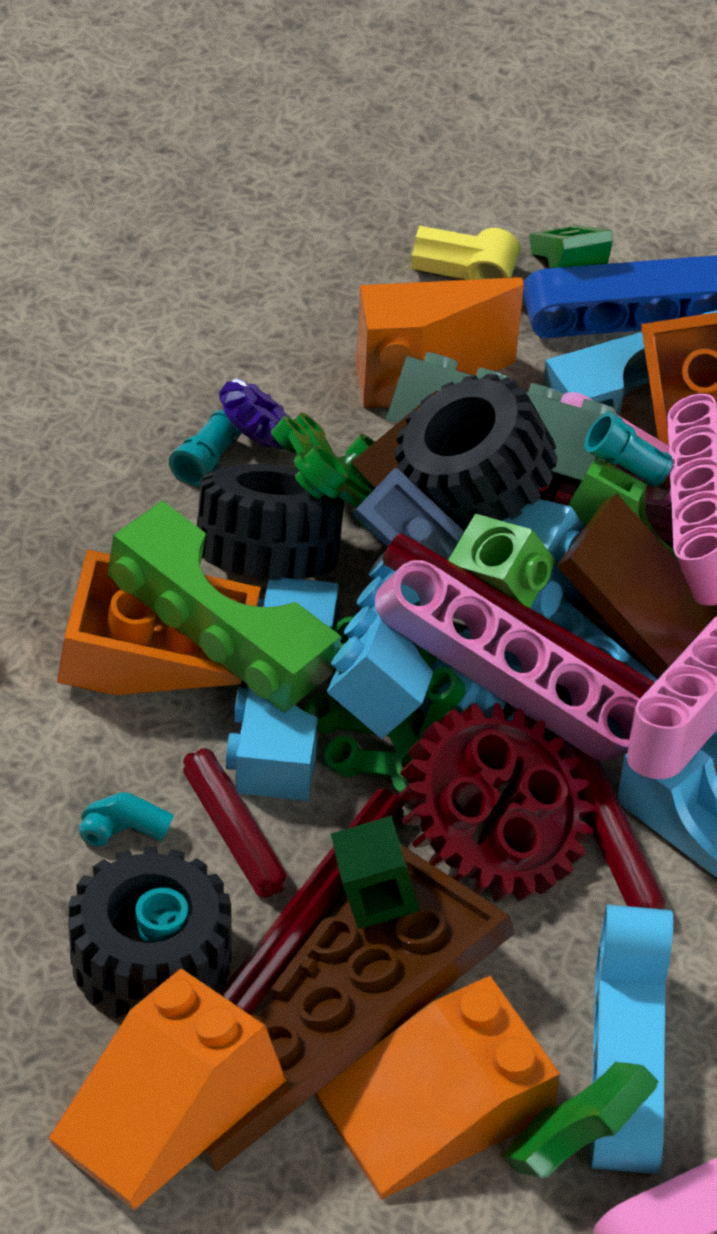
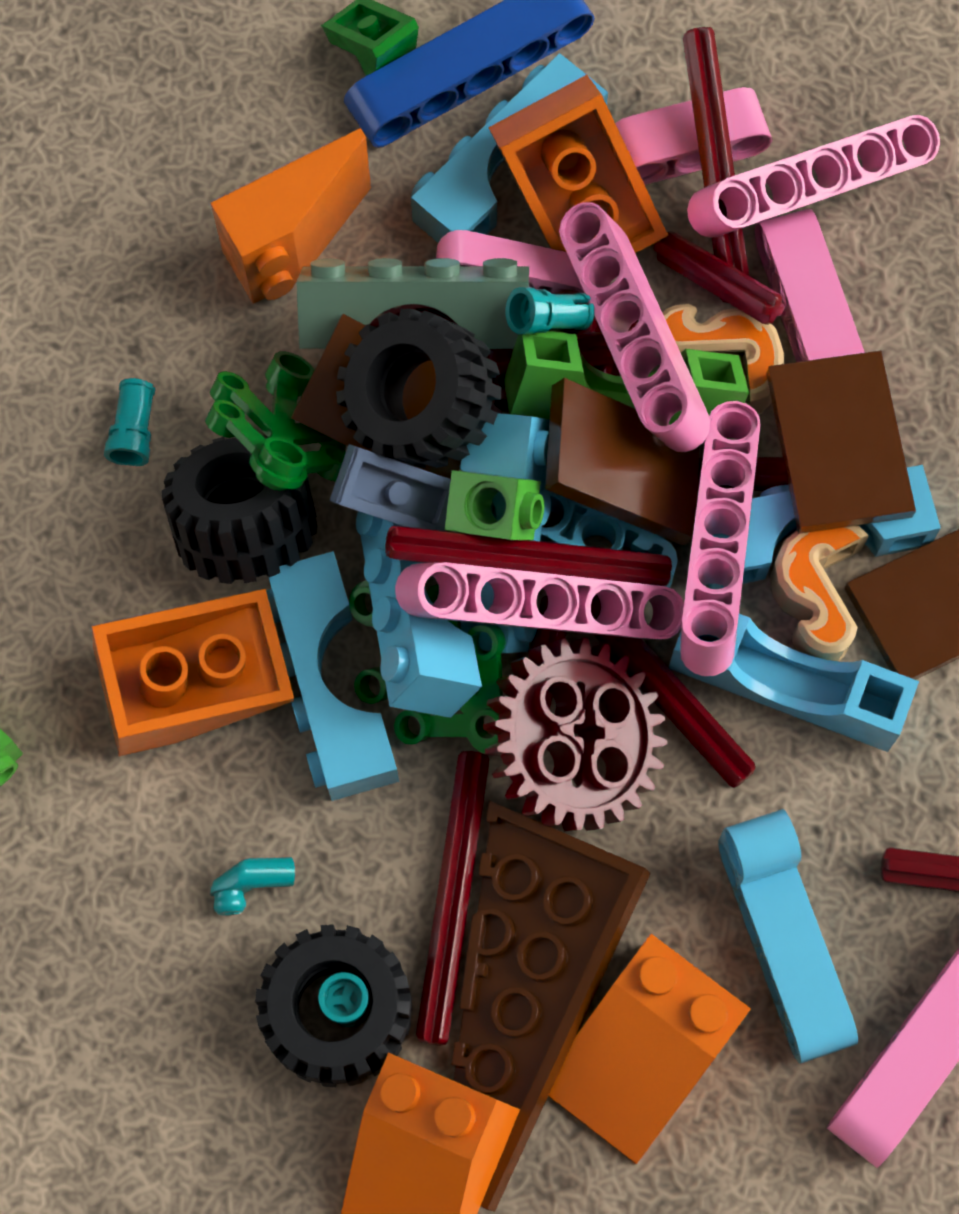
camera: 20 degrees left, 25 degrees up
(235, 823) = (347, 840): dark red axle -> none
(251, 411) = (181, 379): dark purple gear -> none
(273, 649) = (316, 672): bright green arch -> none
(374, 872) = (505, 865): dark green brick -> none
(465, 256) = (289, 81): light yellow piece -> none
(581, 1120) = (796, 1039): green tile -> none

